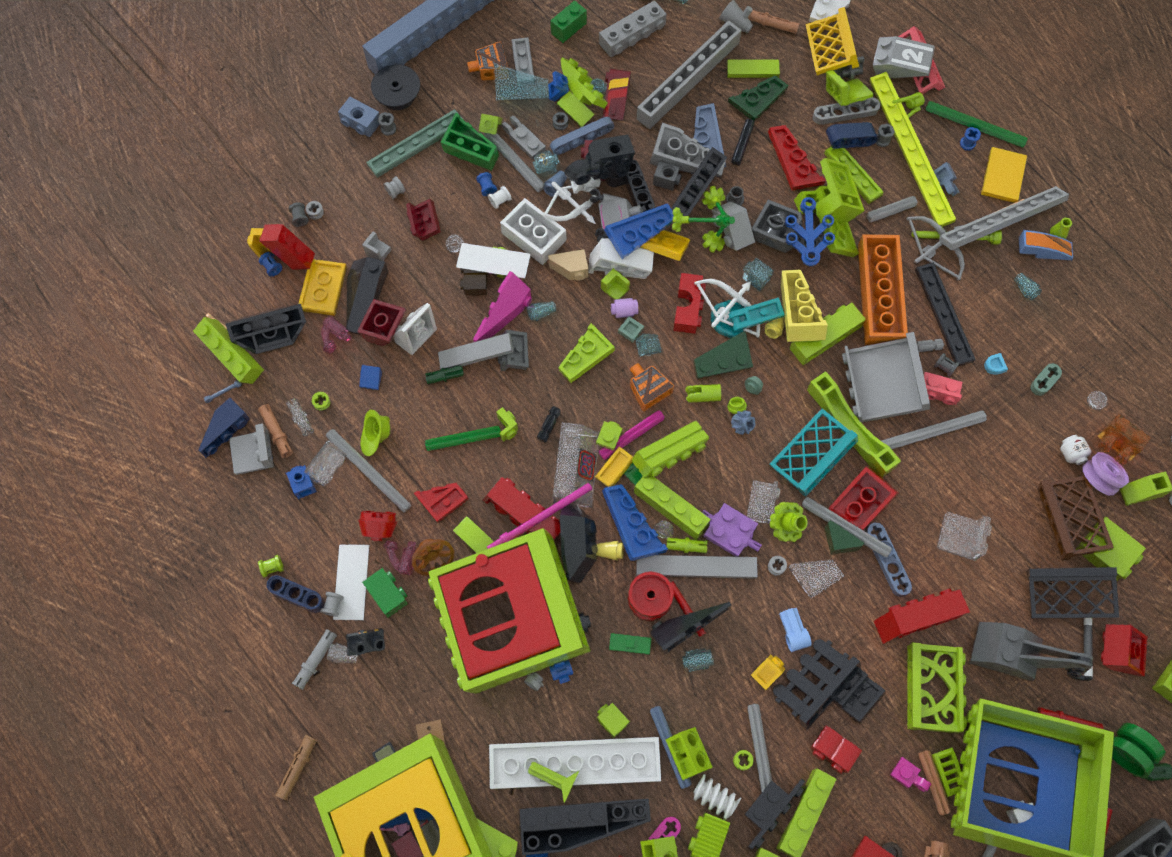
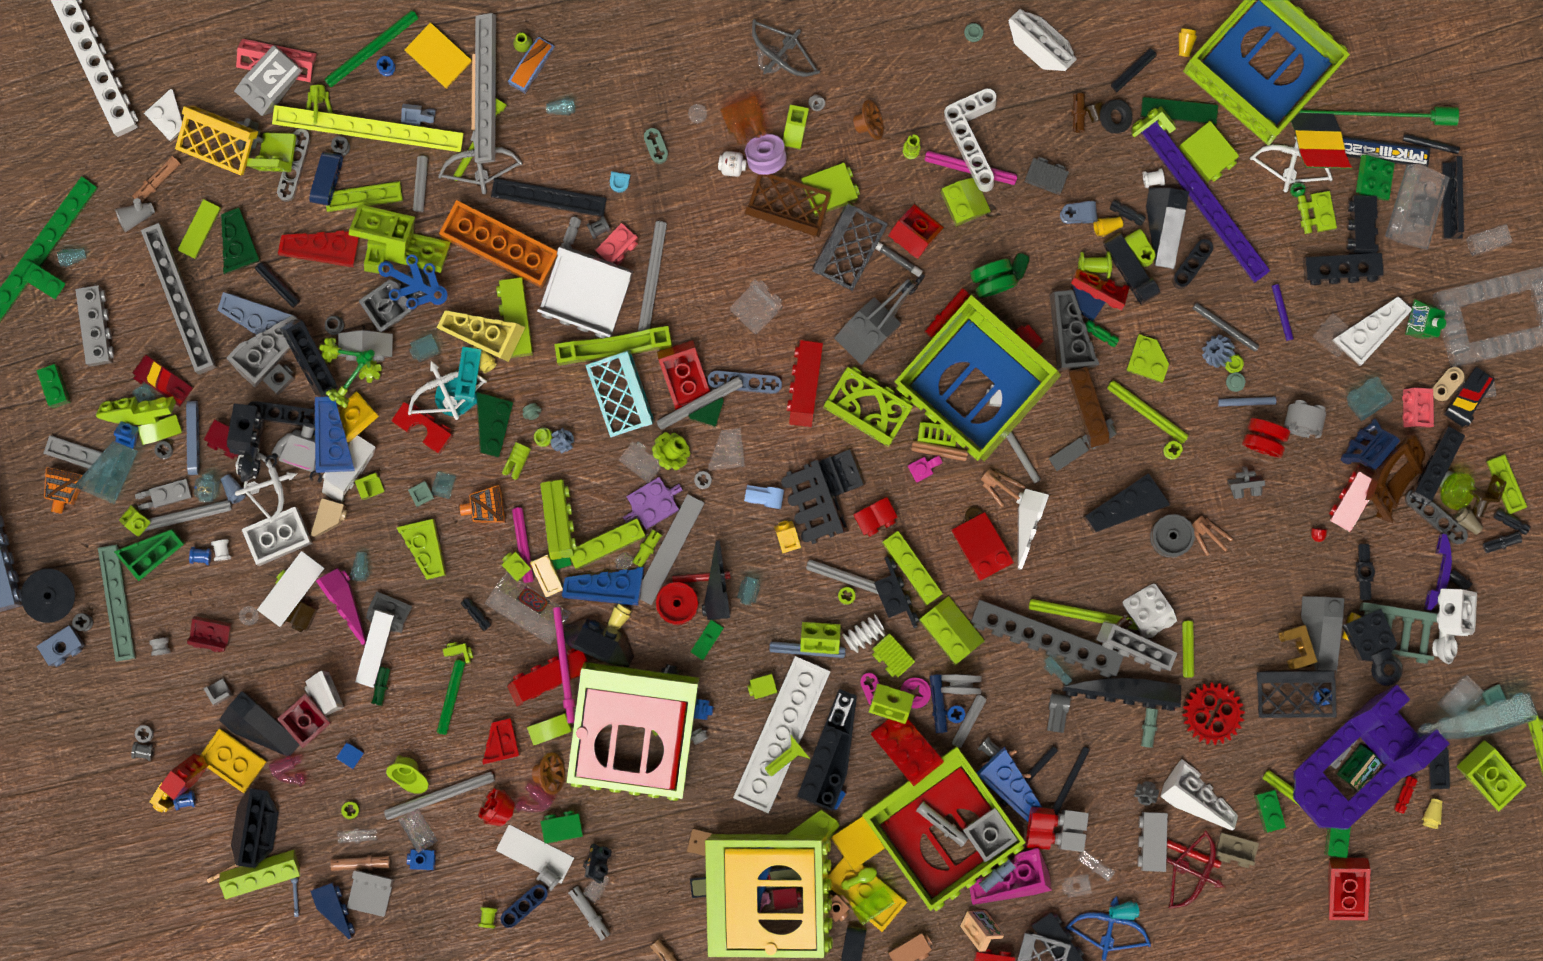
camera: 65 degrees left, 15 degrees up
(624, 308) = (397, 489): lavender brick -> none

